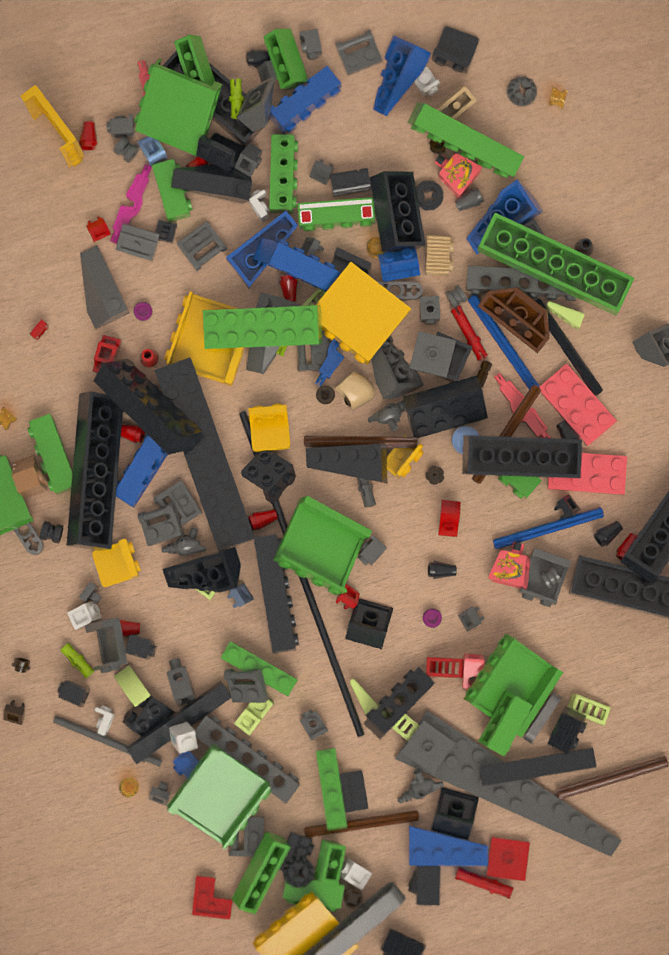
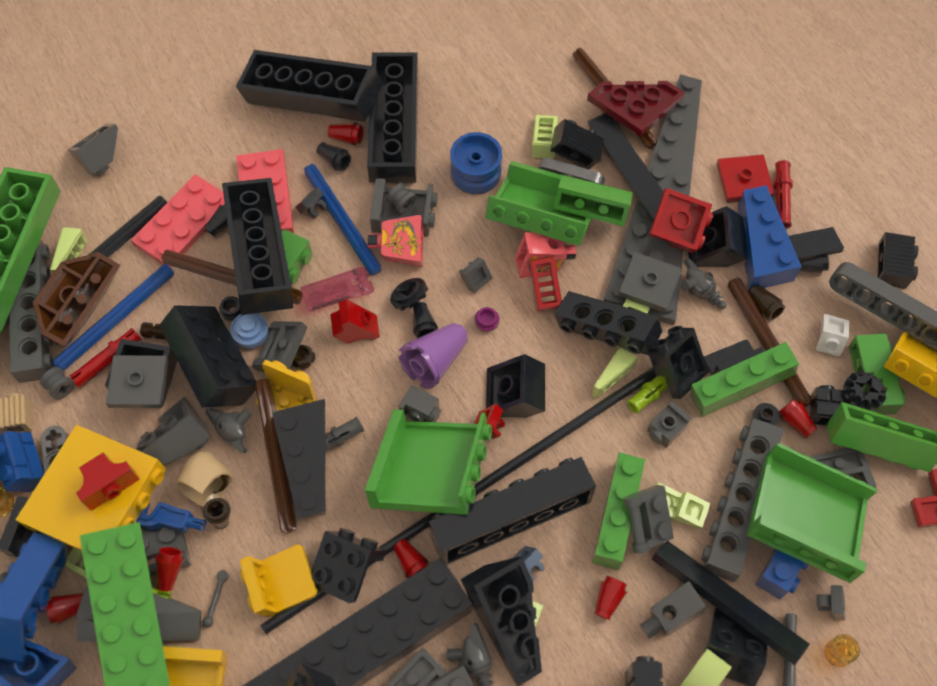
camera: 110 degrees left, 20 degrees down
(183, 737) = (750, 585): white brick -> none
(203, 645) = (609, 597): none -> red cone
(285, 391) = (222, 577): none -> dark grey hinge
(296, 820) = (798, 418): none -> red cone
(297, 357) = (168, 565): none -> red cone
(299, 804) = (769, 408): none -> black plate
(330, 862) = (833, 360): bright green brick -> none
(343, 721) = (648, 393): none -> lime pin
(352, 898) = (864, 324): dark brown wheel -> none
(356, 746) = (679, 360): none -> black plate
(358, 324) = (104, 480): none -> red brick
(392, 833) = (767, 303): none -> dark brown cone
(410, 571) = (433, 354): none -> medium lavender cone
(430, 309) = (78, 410): dark grey brick -> none
(442, 463) = (281, 343): none -> dark grey plate
(469, 786) = (681, 220): none -> red plate
(473, 563) = (408, 293): none -> black gear
(485, 510) = (336, 289): none -> clear pink plate
(492, 425) = (226, 304): none -> black plate
(515, 397) = (187, 286): coral piece -> none
(557, 643) = (476, 162): none -> blue wheel
(595, 790) = (636, 103): none -> dark red plate

